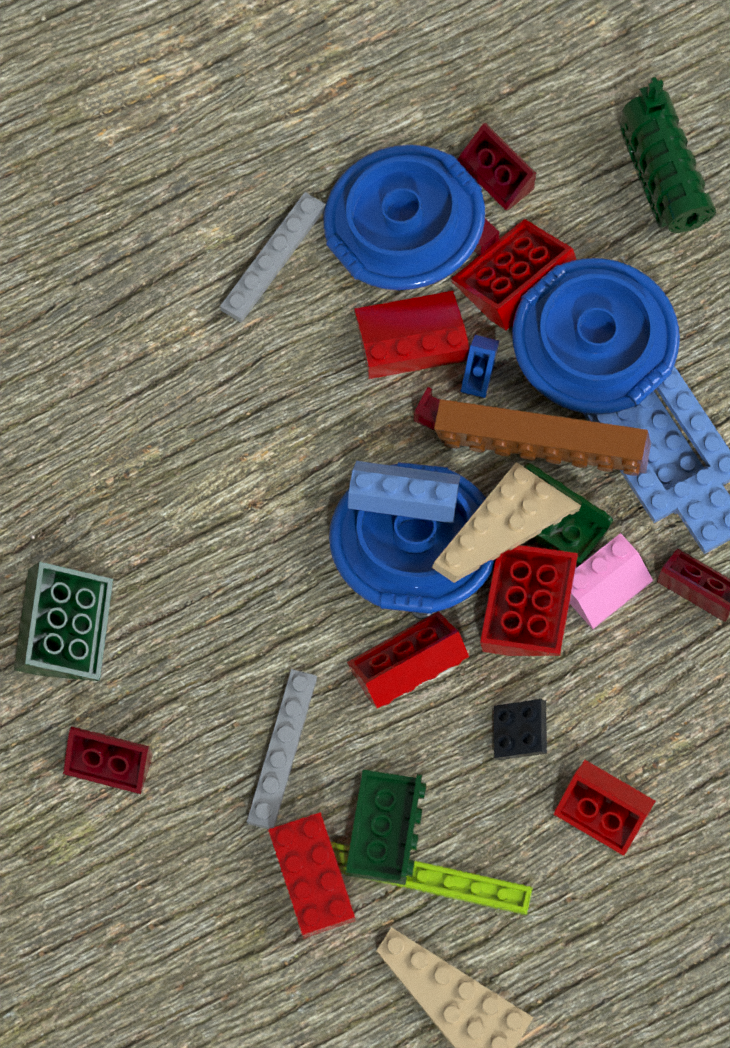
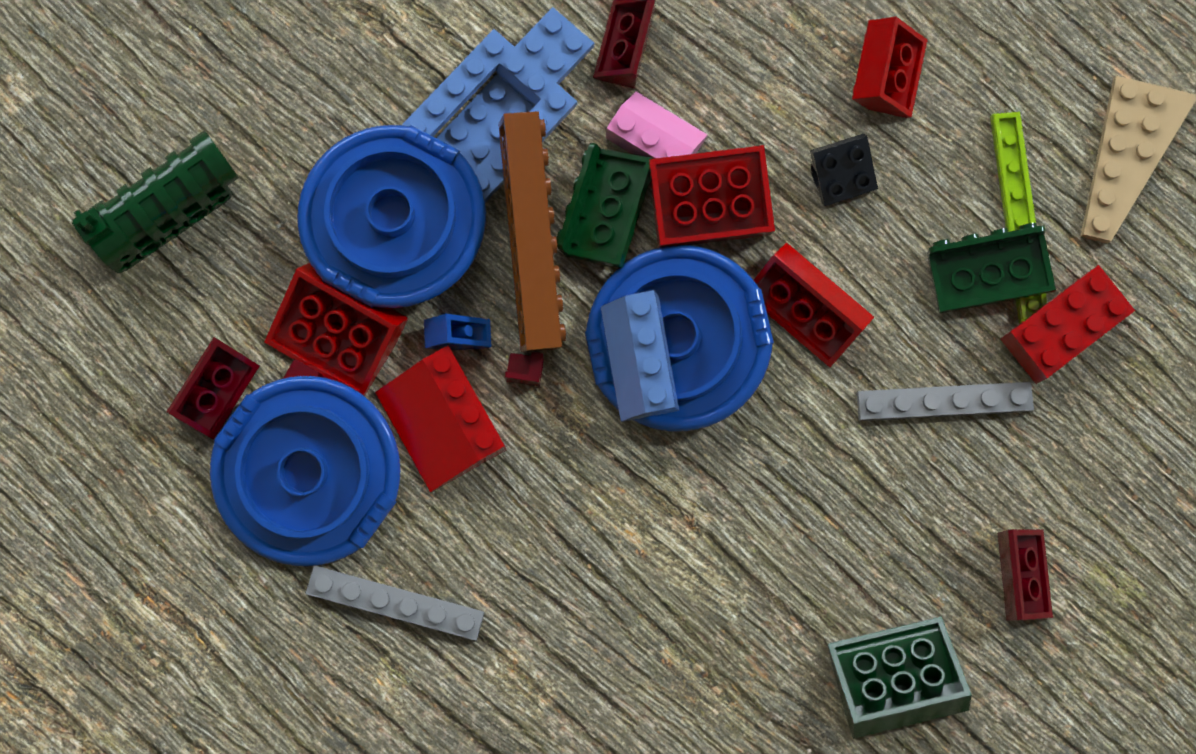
camera: 110 degrees left, 10 degrees up
(507, 518) = (627, 241): tan wing -> none

